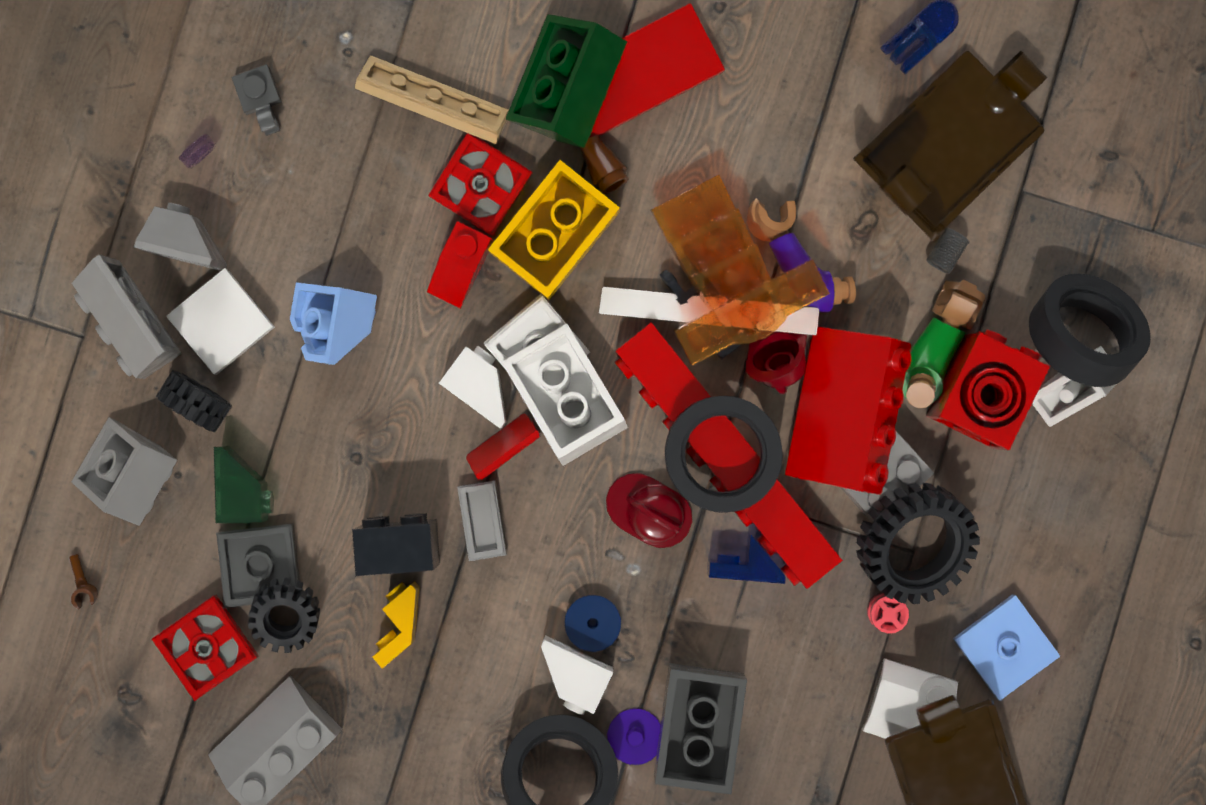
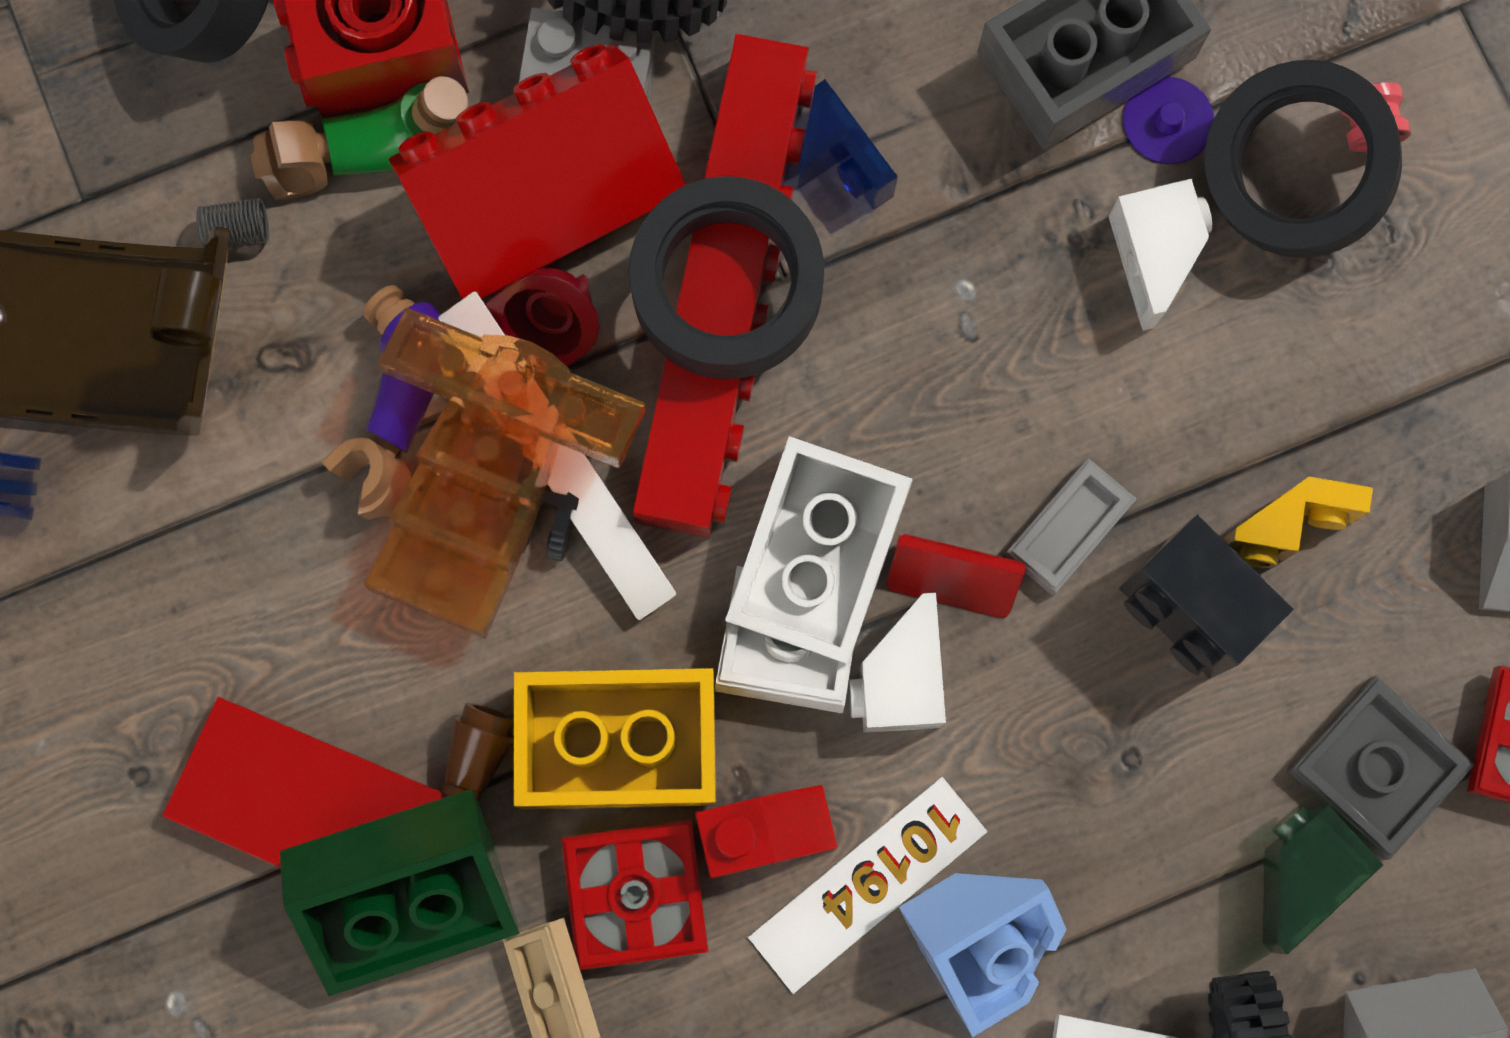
camera: 130 degrees left, 10 degrees down
(279, 634) = (1441, 657): black tyre -> none
(399, 293) = (867, 885): none -> white sticker
(592, 623) = (1077, 280): dark blue piece -> none
(649, 510) = (875, 330): dark red piece -> none

